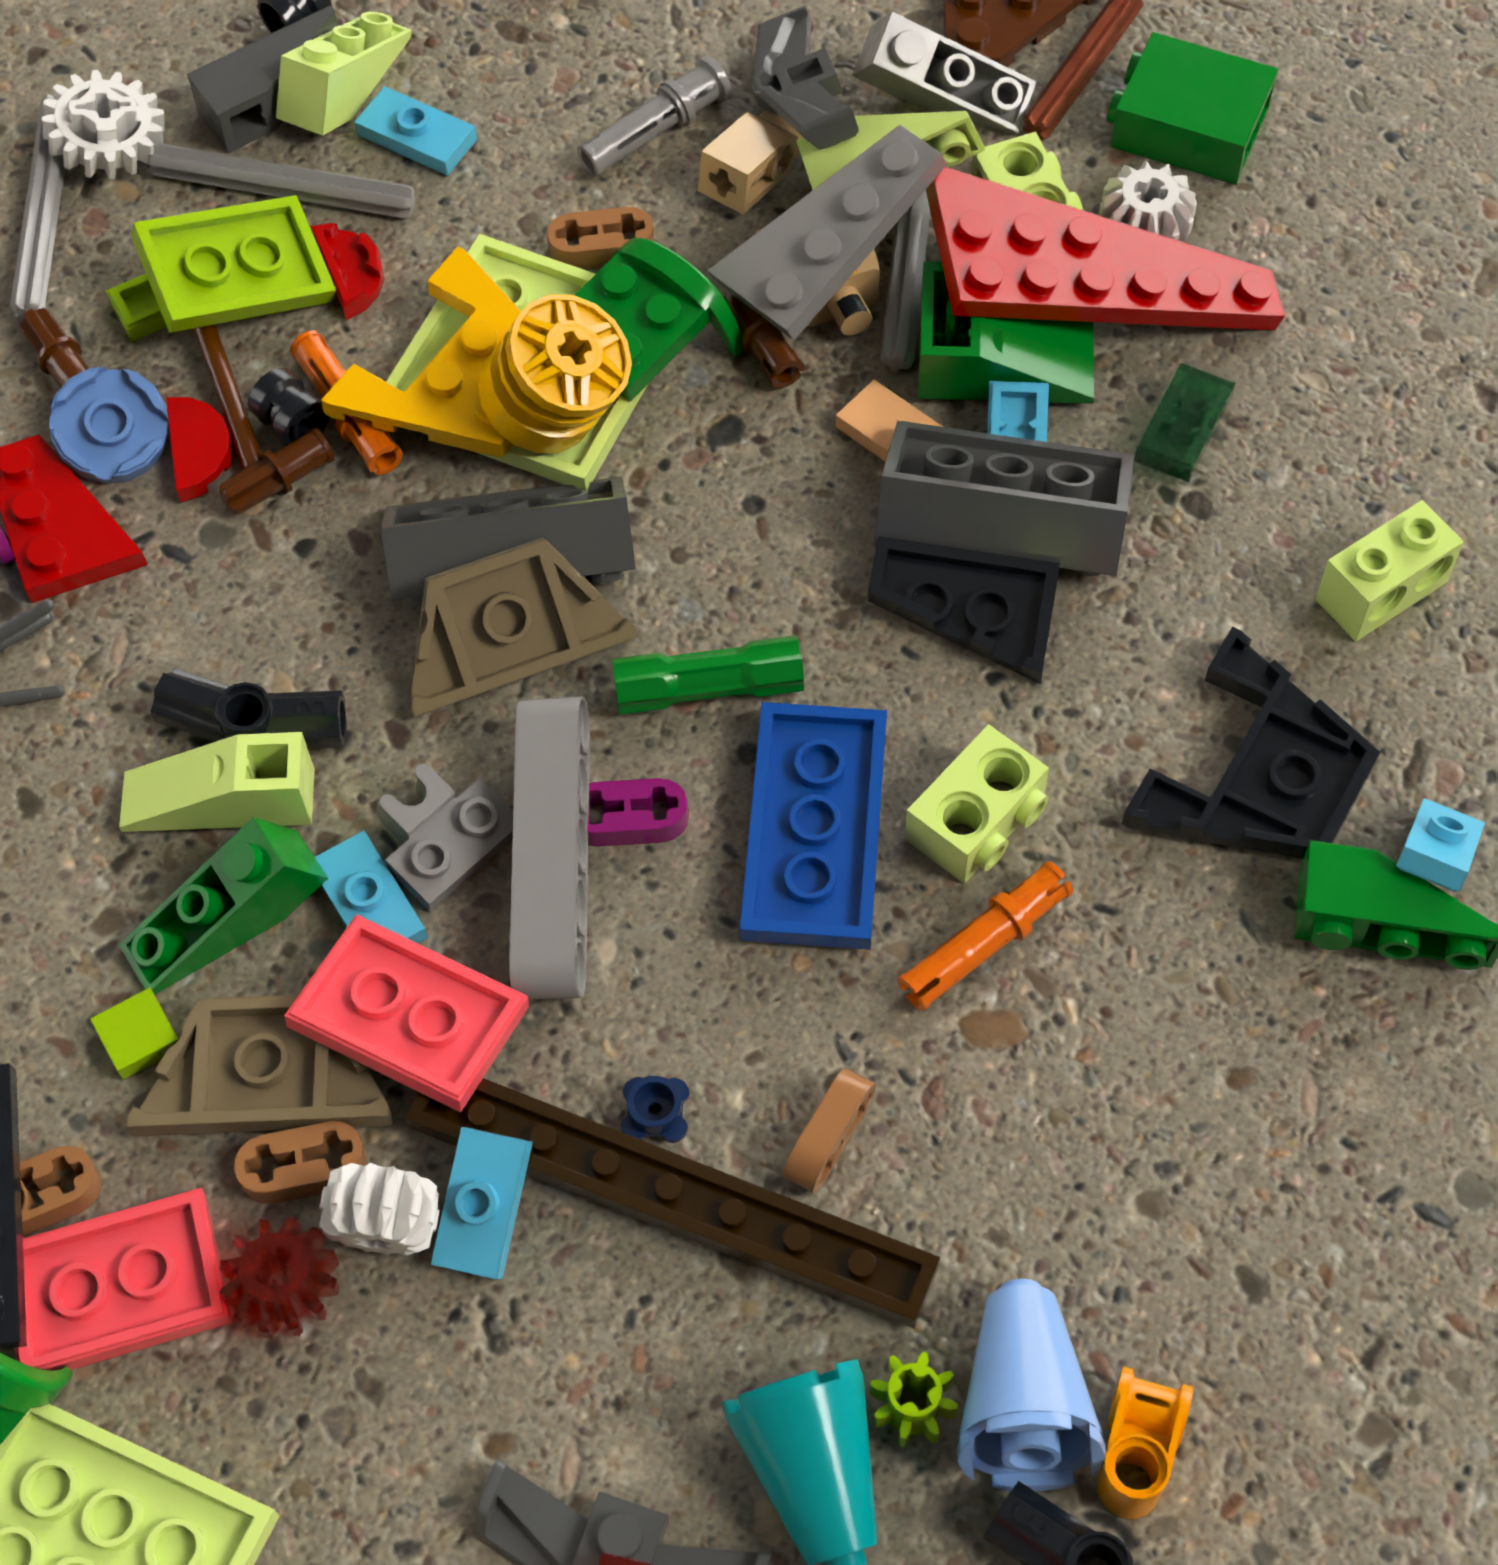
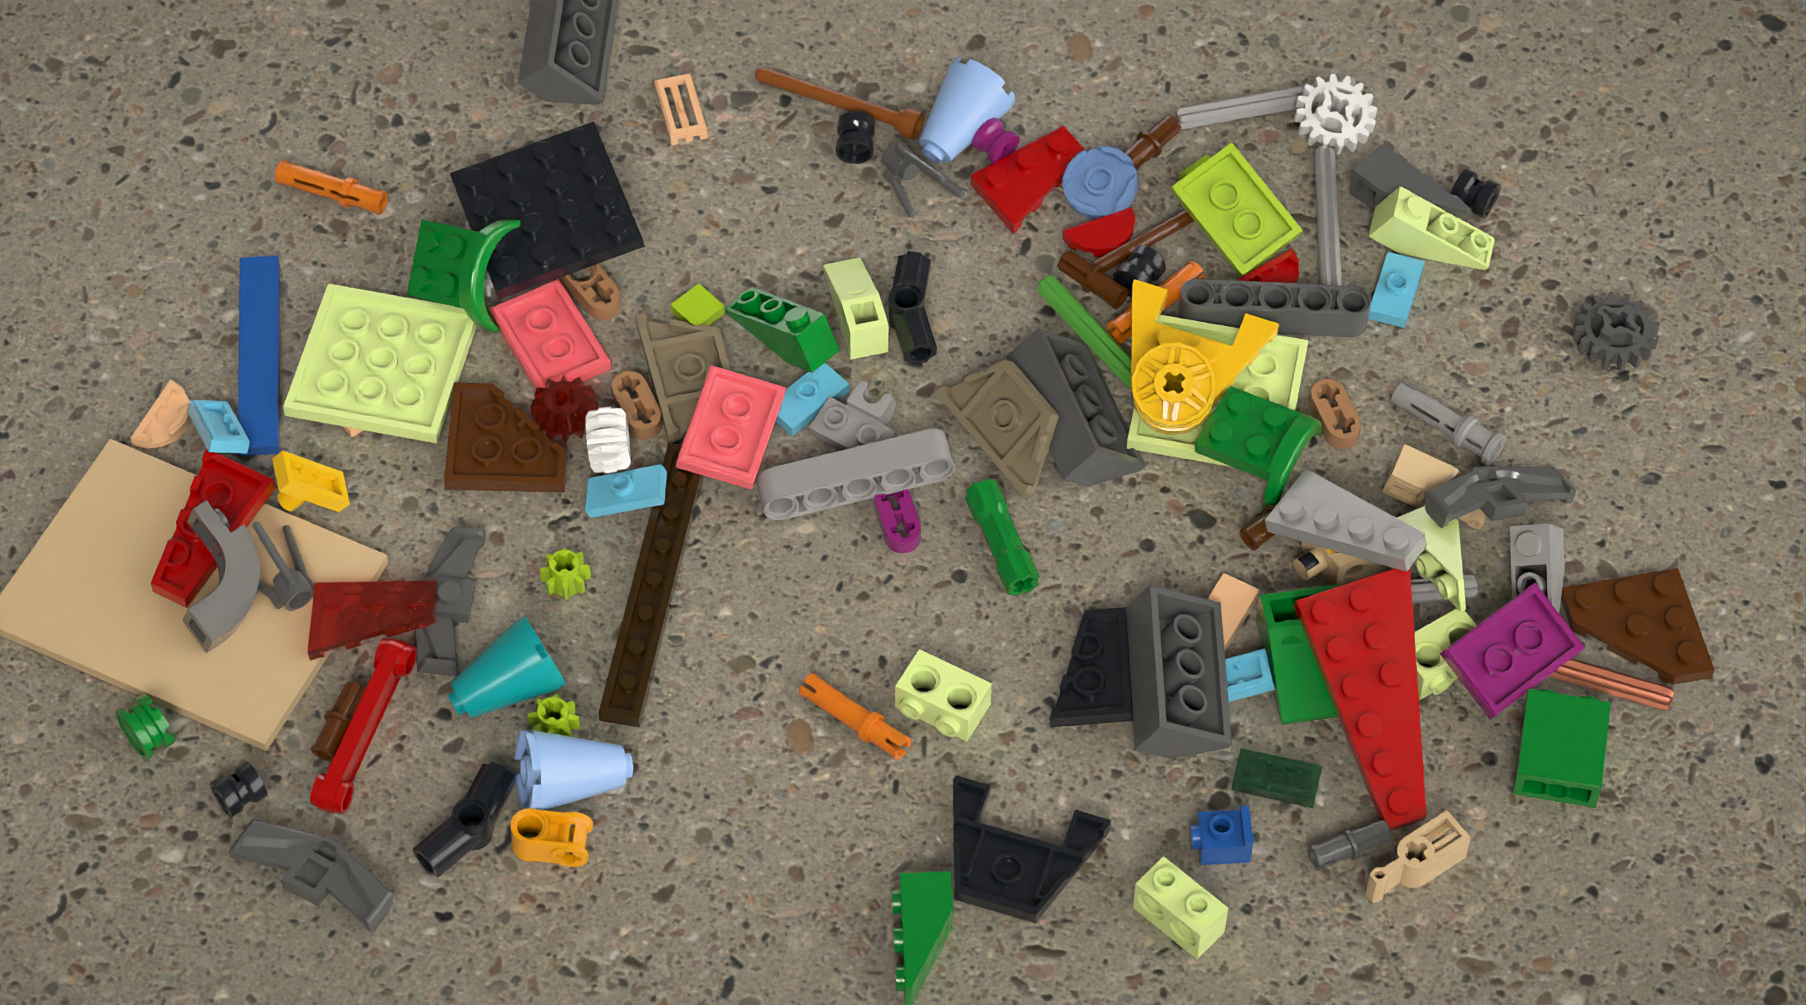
camera: 75 degrees right, 5 degrees down
(319, 1407) = (499, 445): none -> reddish brown plate
(364, 495) = (1086, 327): none -> bright green axle
(408, 254) = (1294, 306): none -> dark grey beam
(612, 1348) = (565, 573): none -> lime gear
(655, 1090) = (705, 558): dark blue plate -> none
(814, 826) = (910, 613): blue plate -> none
(829, 1130) = (707, 654): medium nougat beam -> none
(1054, 112) = (1512, 651): none -> magenta tile
(1150, 201) = (1455, 730): white gear -> none
(1273, 498) = (1222, 836): none -> blue brick
(1301, 365) = (1349, 844): none -> dark grey axle
(1337, 287) = (1421, 856): none -> tan piece
(1441, 845) = (971, 952): medium azure plate -> none

